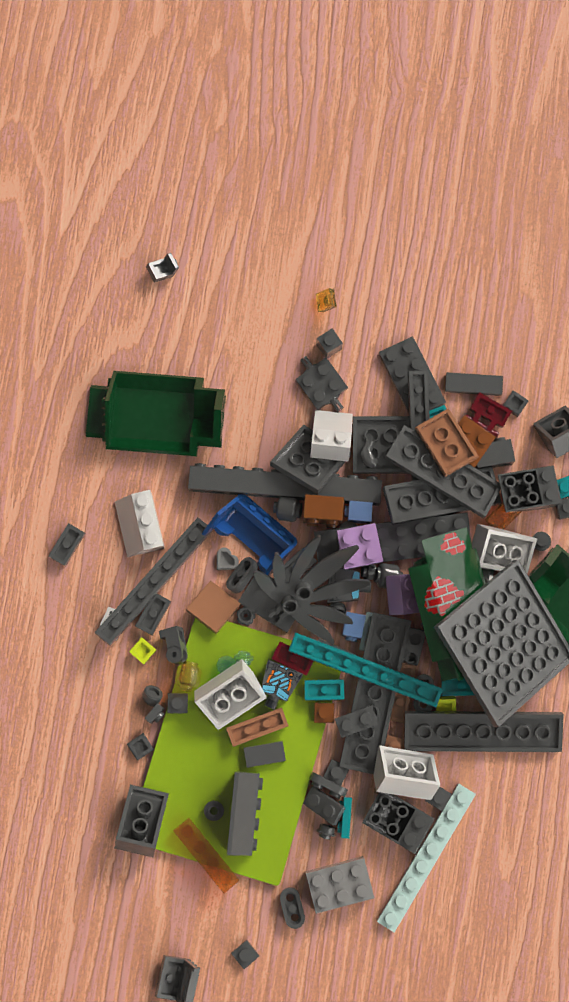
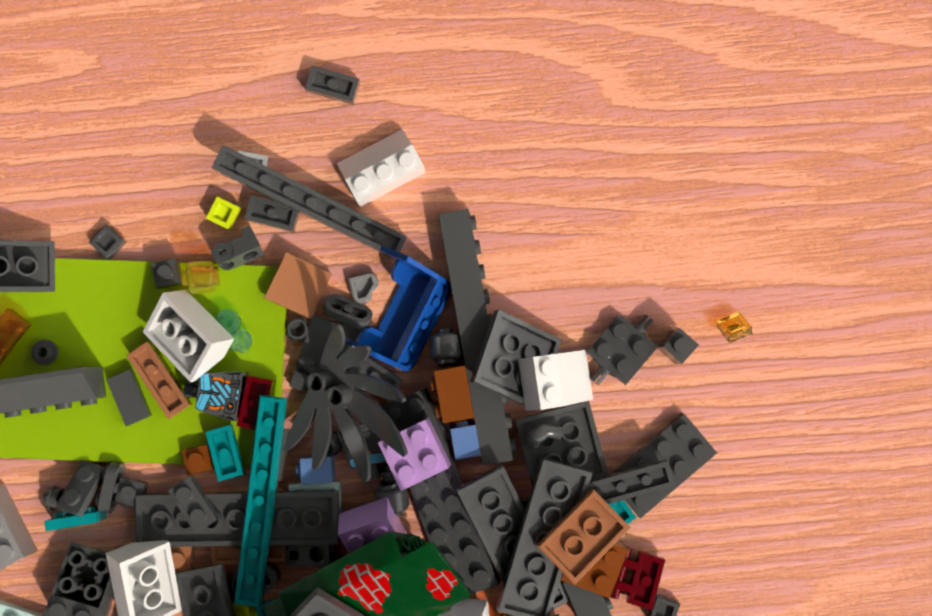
camera: 80 degrees right, 5 degrees up
(152, 695) = (171, 239): dark grey tile -> none
(155, 714) = (148, 249): dark grey plate -> none
(156, 413) = (526, 150): dark green panel -> none
(163, 268) = (718, 107): dark grey bracket -> none
(474, 384) = (675, 549): dark grey tile -> none

